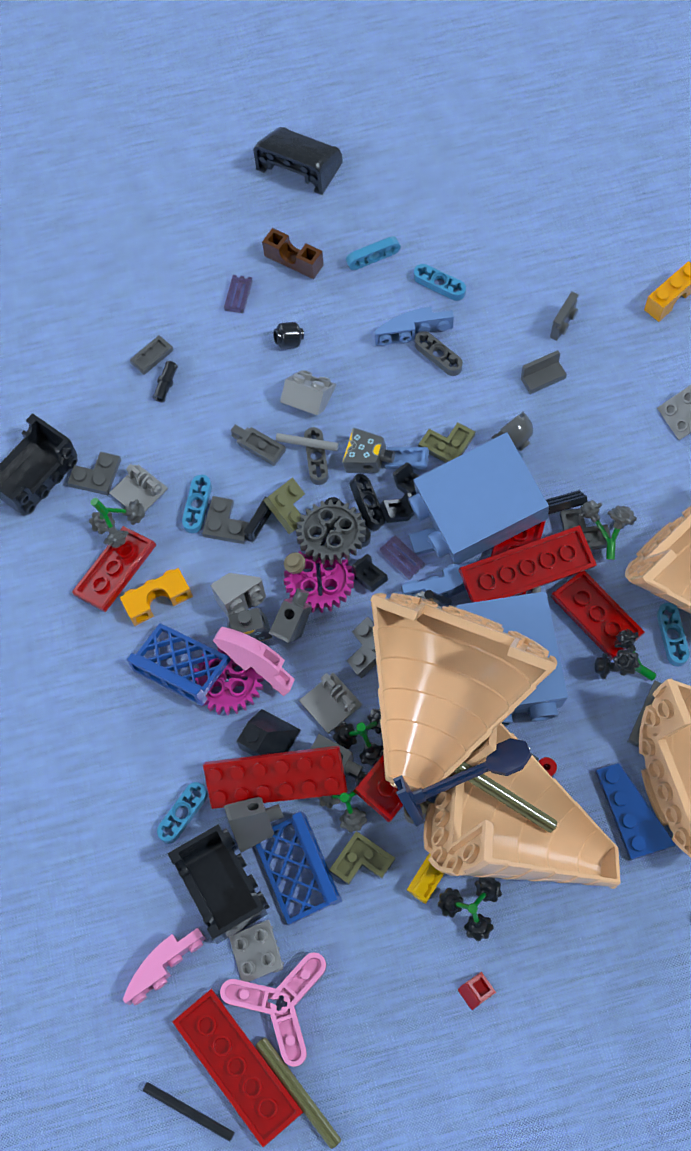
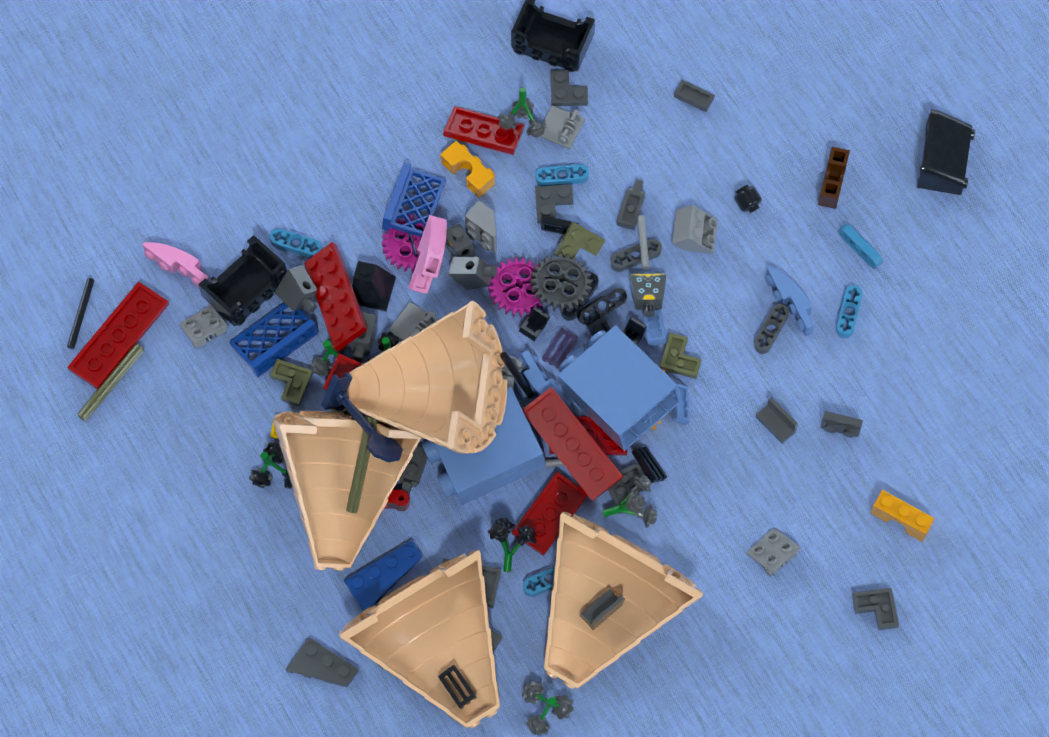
camera: 70 degrees right, 0 degrees up
(165, 381) = (670, 114): black pin -> none
(240, 281) = (780, 144): clear purple tile -> none
(285, 1022) = (181, 358): bright pink piece -> none
(294, 563) = (522, 261): dark tan plate -> none
(476, 990) = (214, 489): red slope -> none
(519, 430) = (702, 408): dark grey cylinder -> none

